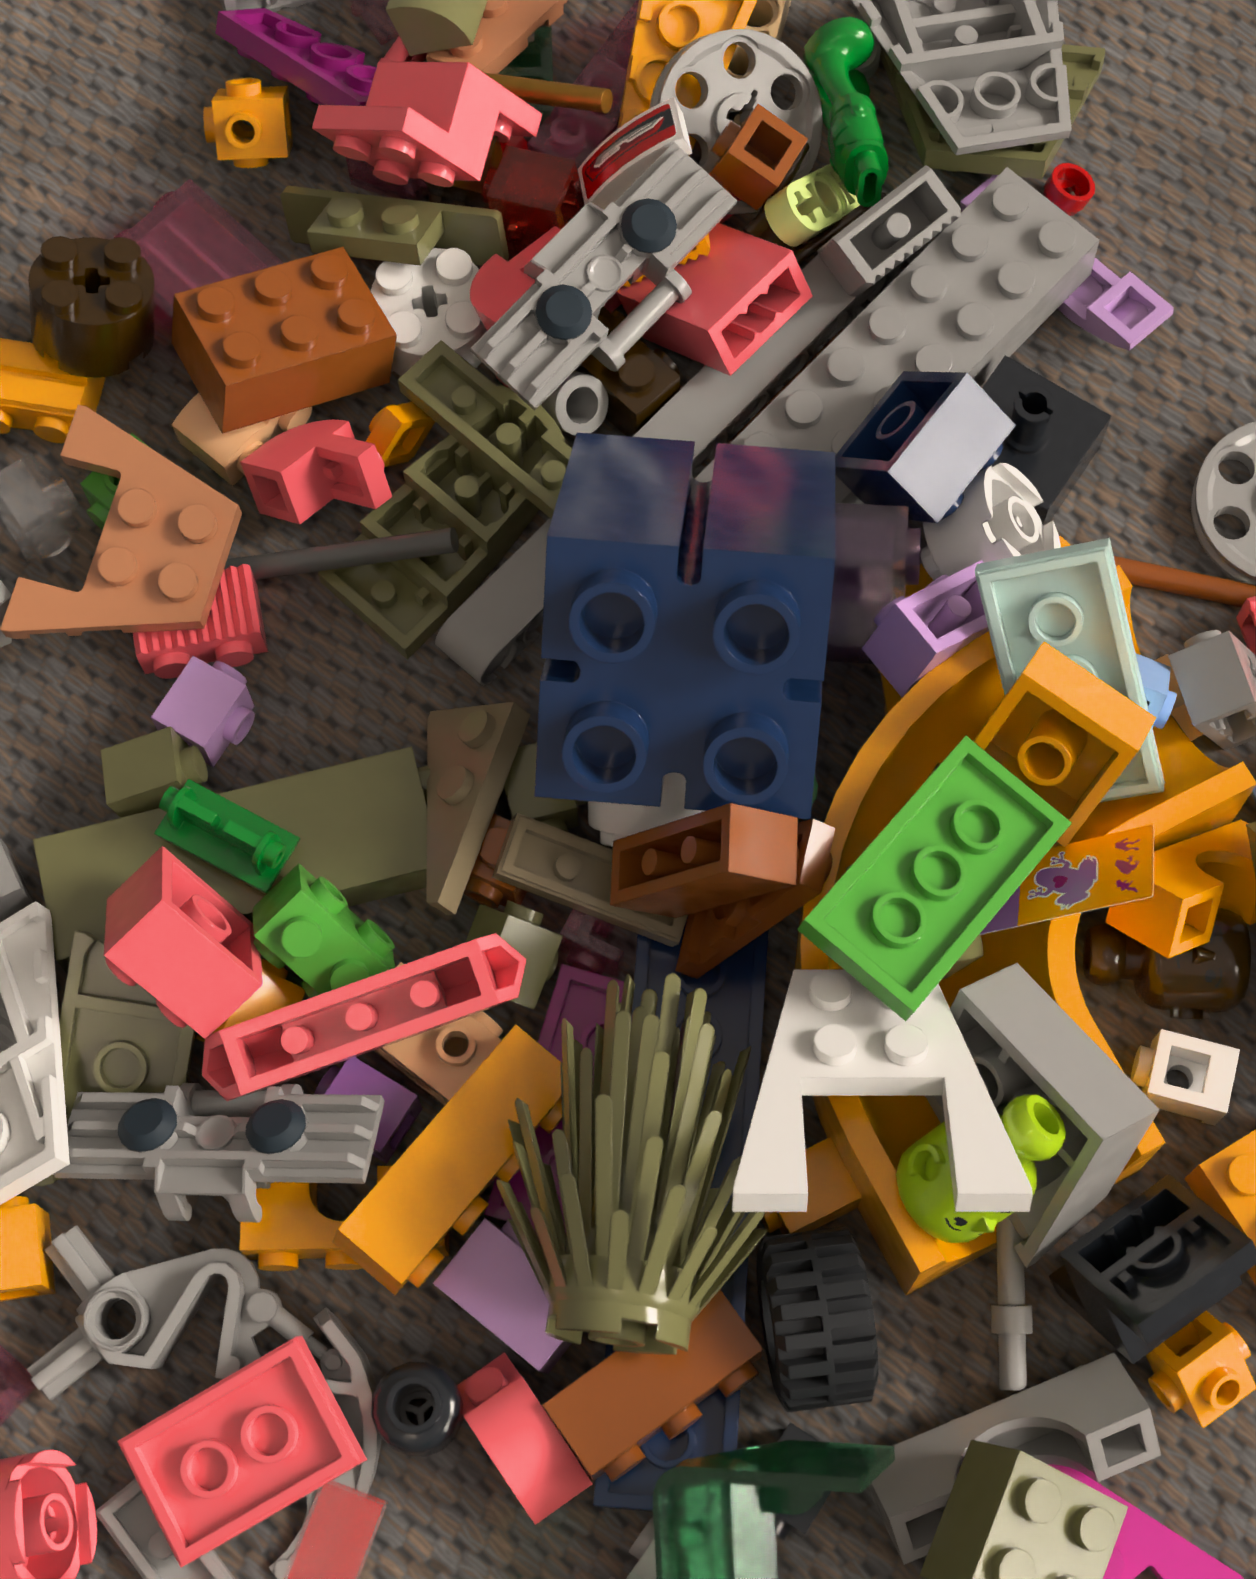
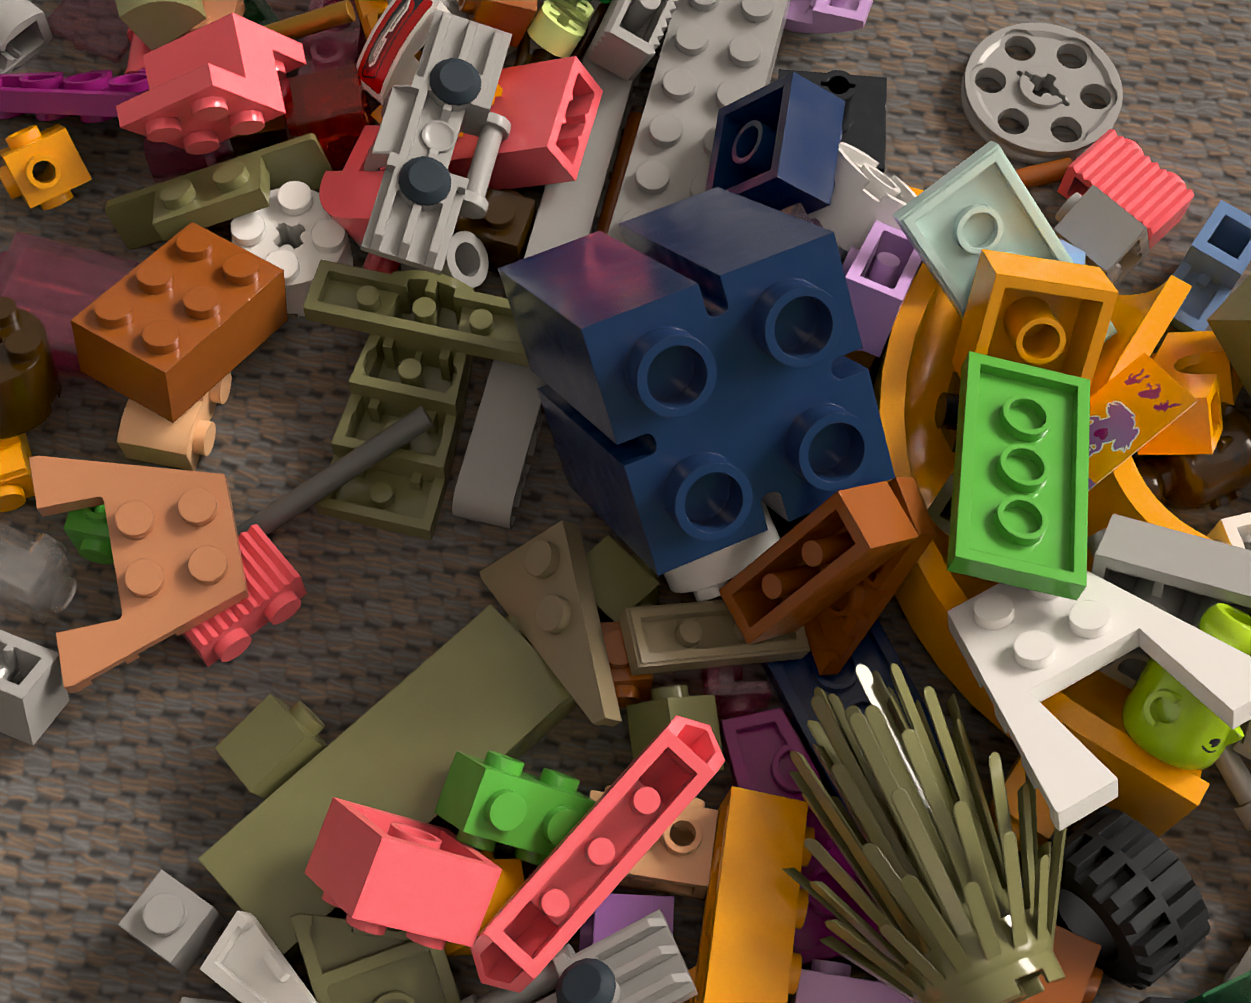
camera: 35 degrees left, 5 degrees down
(207, 708) = (287, 663): lavender brick -> none
(225, 835) = (376, 761): green hinge -> none
(312, 466) = (264, 414): coral brick -> none
(399, 432) = (319, 357): light orange plate -> none

